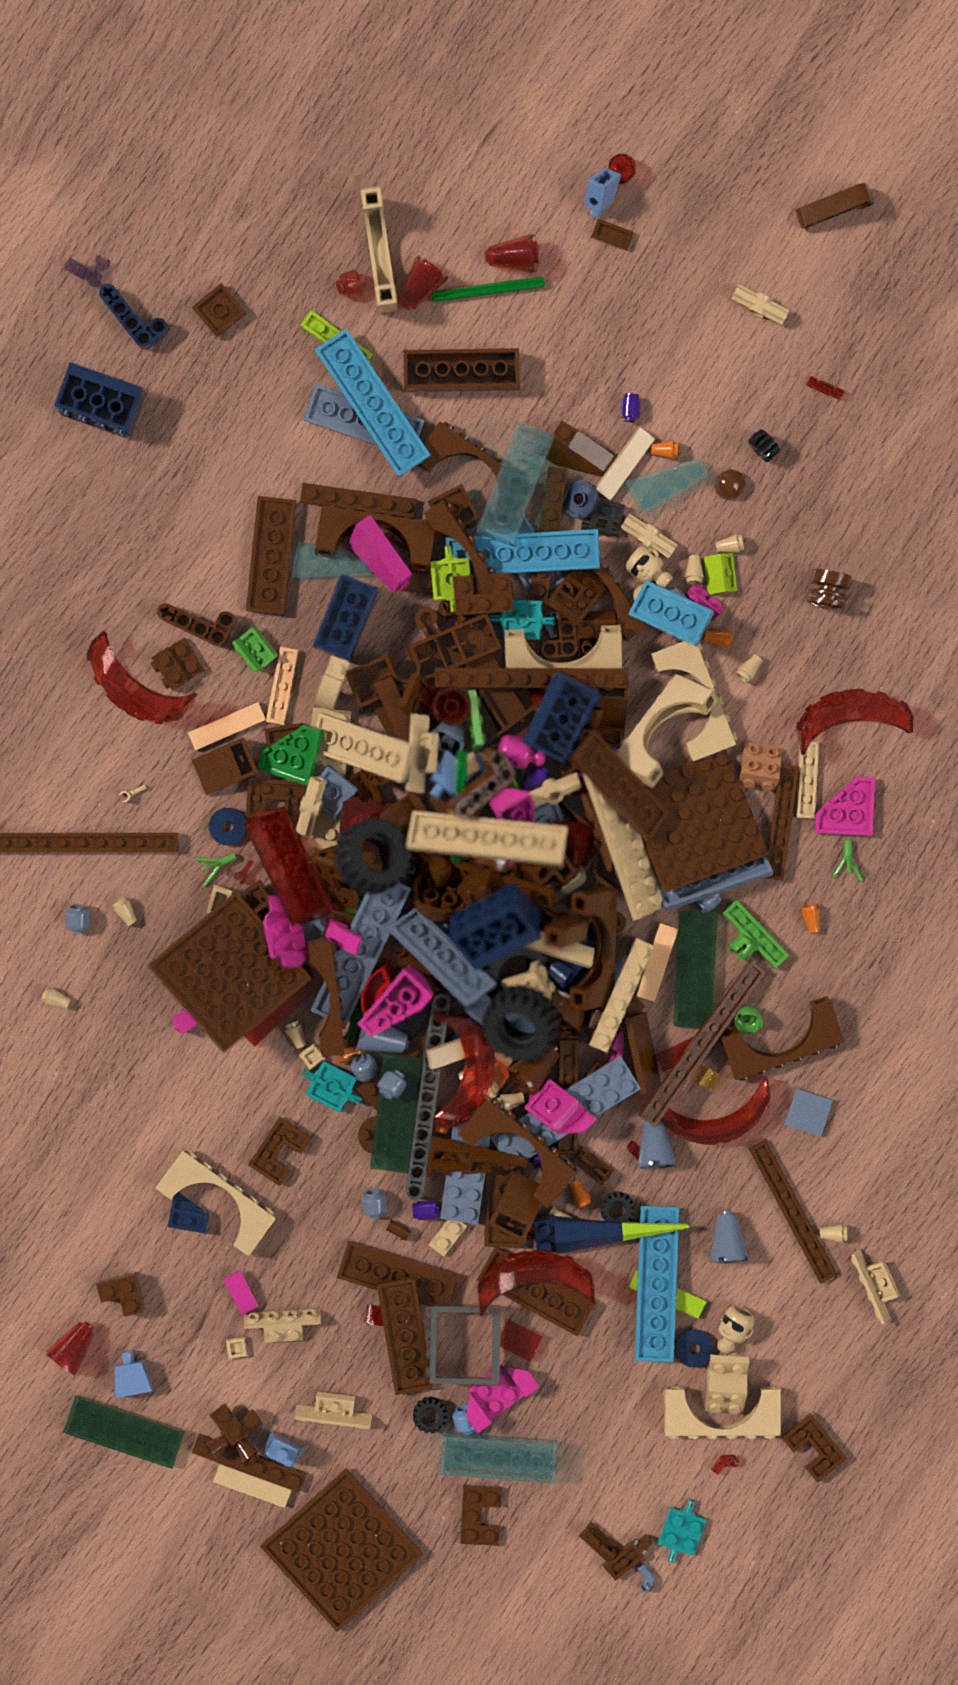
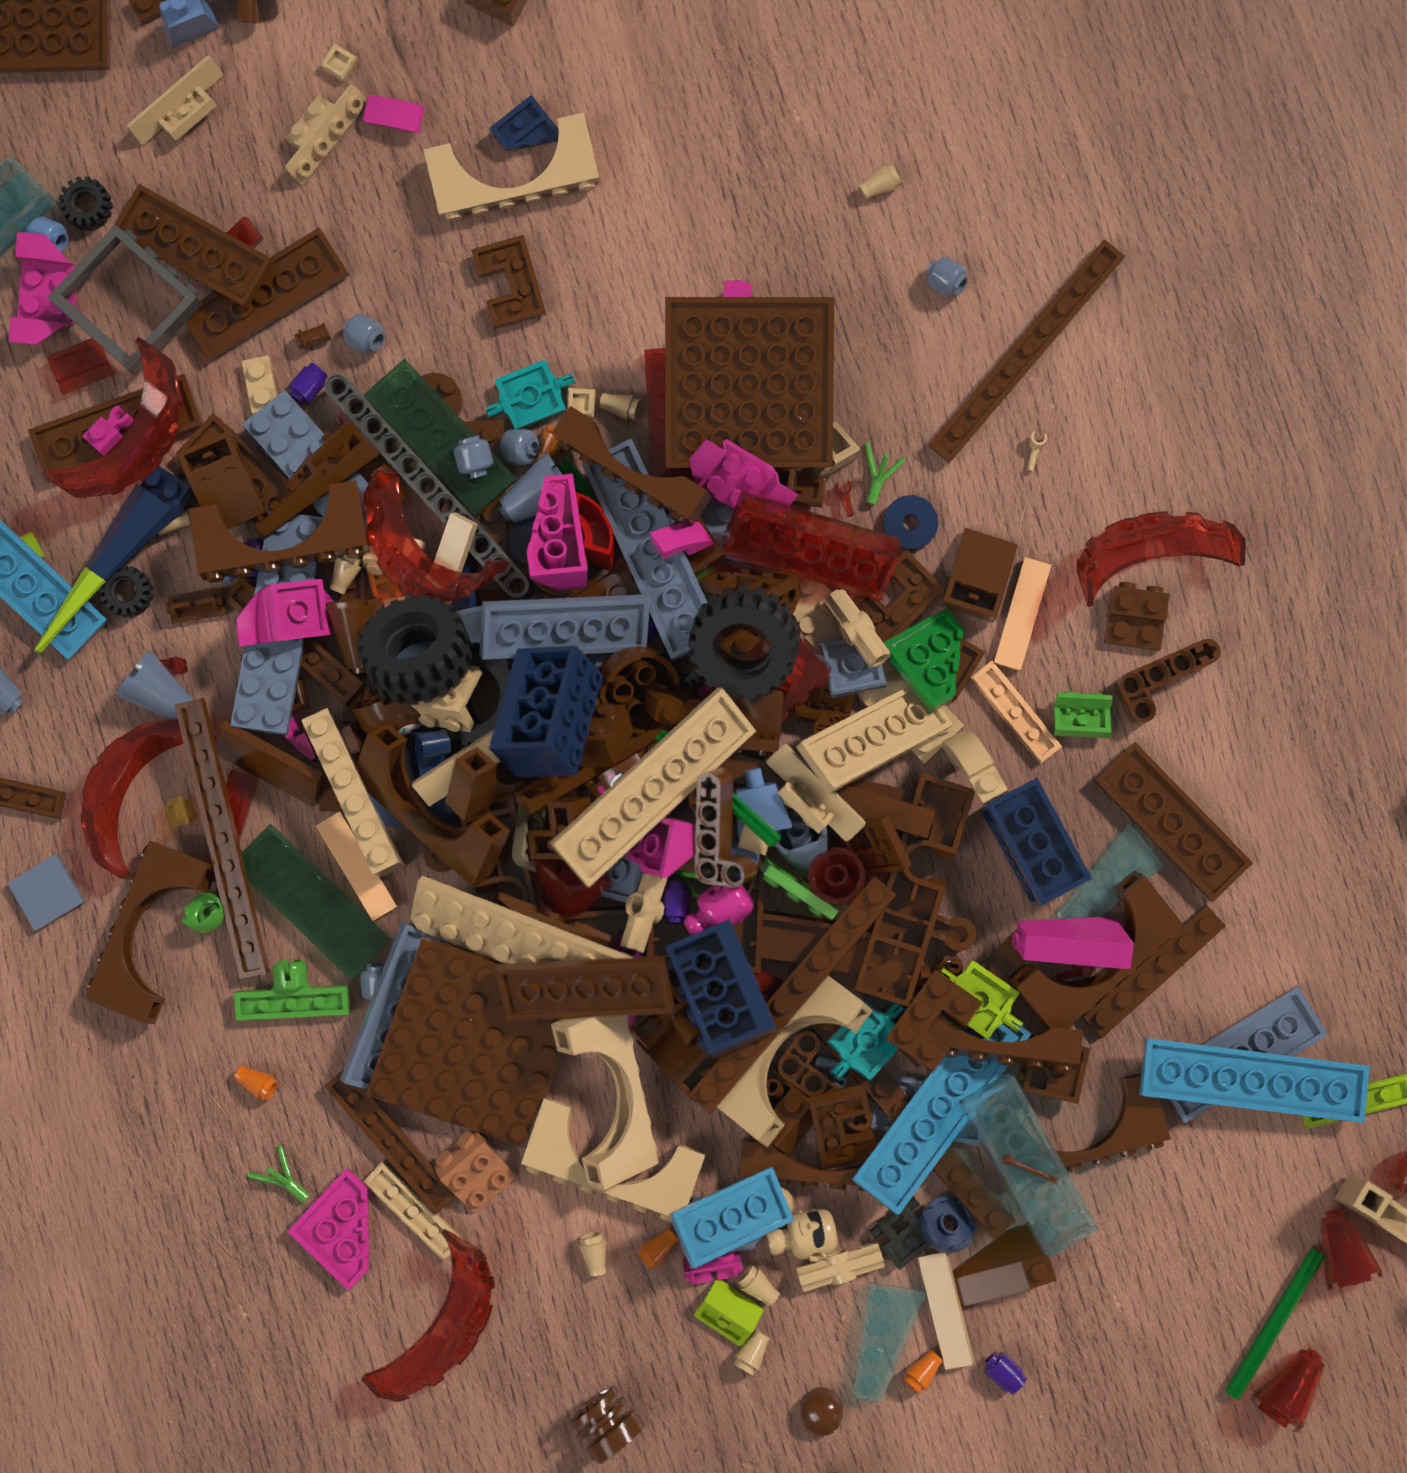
camera: 130 degrees right, 5 degrees down
(124, 910) = (914, 334): tan cone -> none
(461, 370) = (1208, 1214): reddish brown brick -> none
(522, 497) = (1007, 1160): none -> reddish brown hinge
(545, 1292) = (106, 434): none -> dark pink plate
(579, 1194) = (177, 563): orange cone -> none

